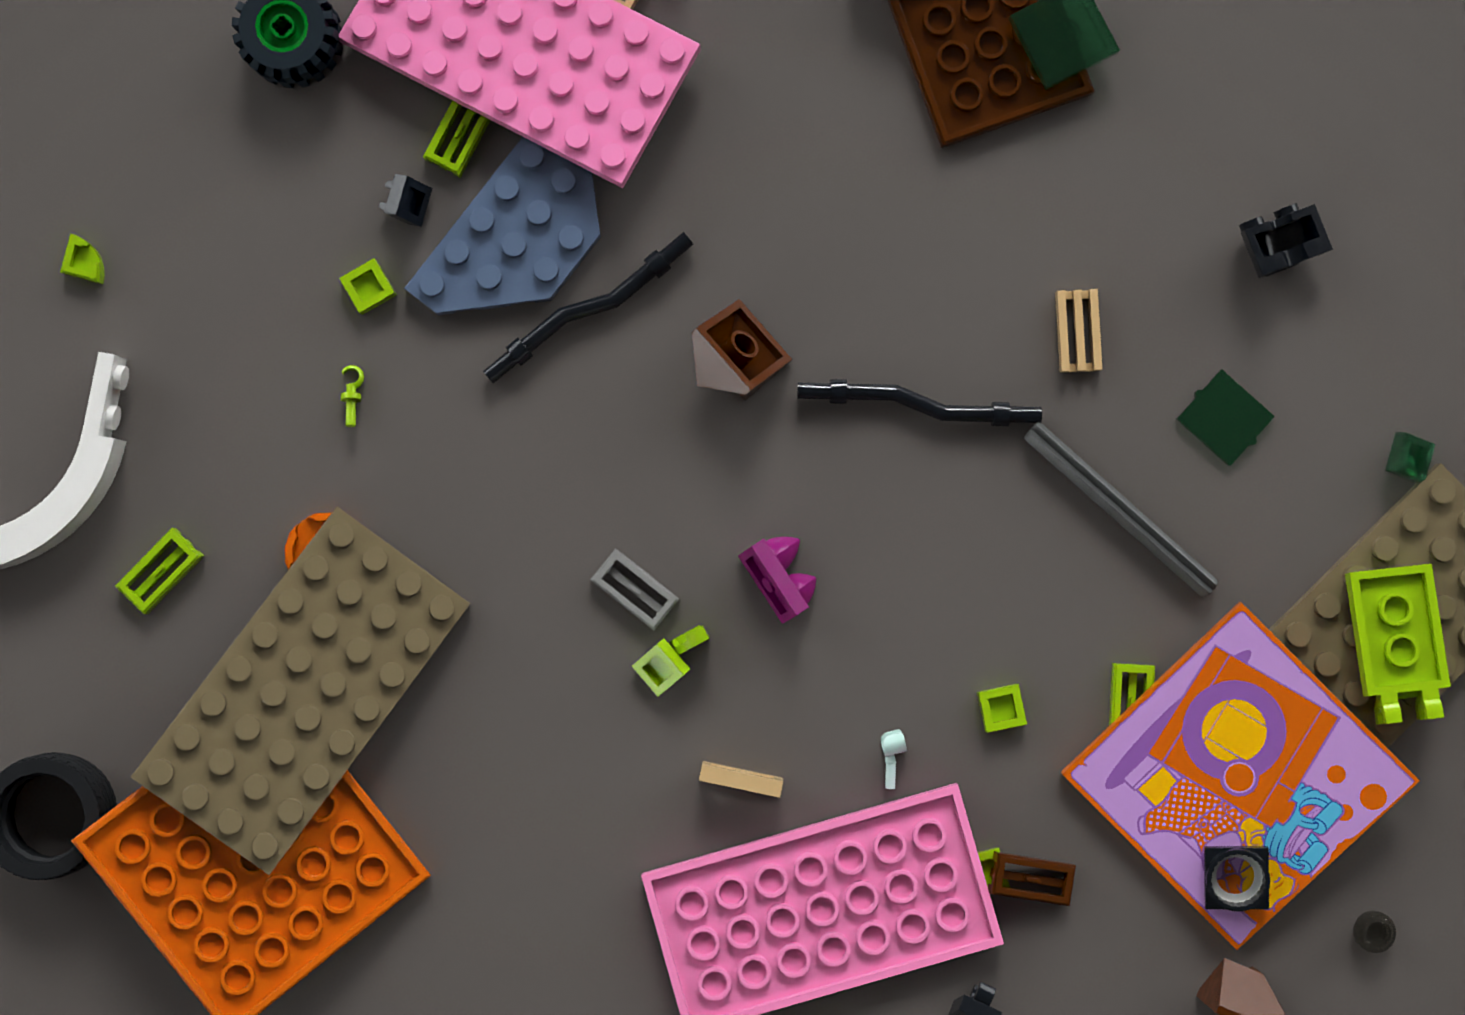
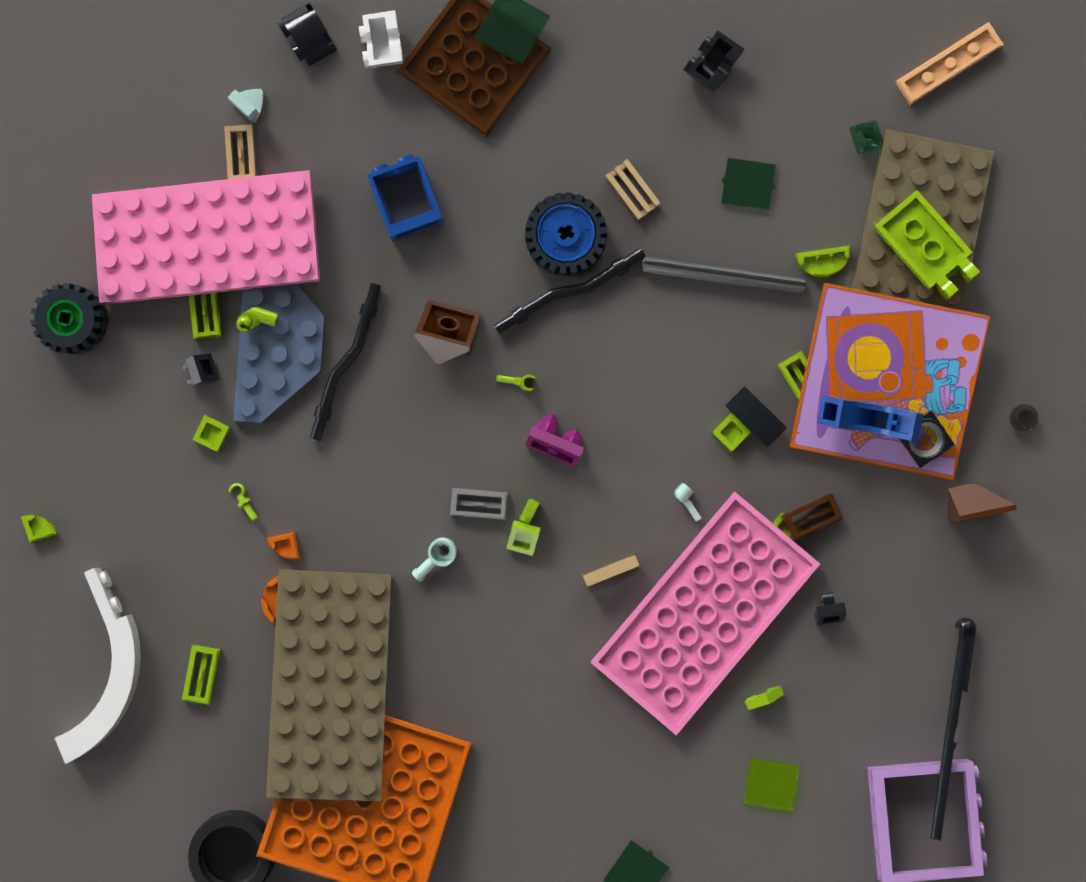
camera: 30 degrees left, 0 degrees up
(366, 482) = (285, 545): none -> orange tile
(514, 179) = (254, 317): none -> lime arm
(539, 620) = (436, 557): none -> light aqua bar
(780, 469) = (516, 381): none -> lime hand
(782, 195) = (414, 224): none -> blue window
(970, 301) = (563, 213): none -> wheel
(1045, 709) = (756, 416): none -> black slope
(1188, 809) = (870, 417): none -> blue arch
(1254, 575) = (823, 262): none -> lime tile

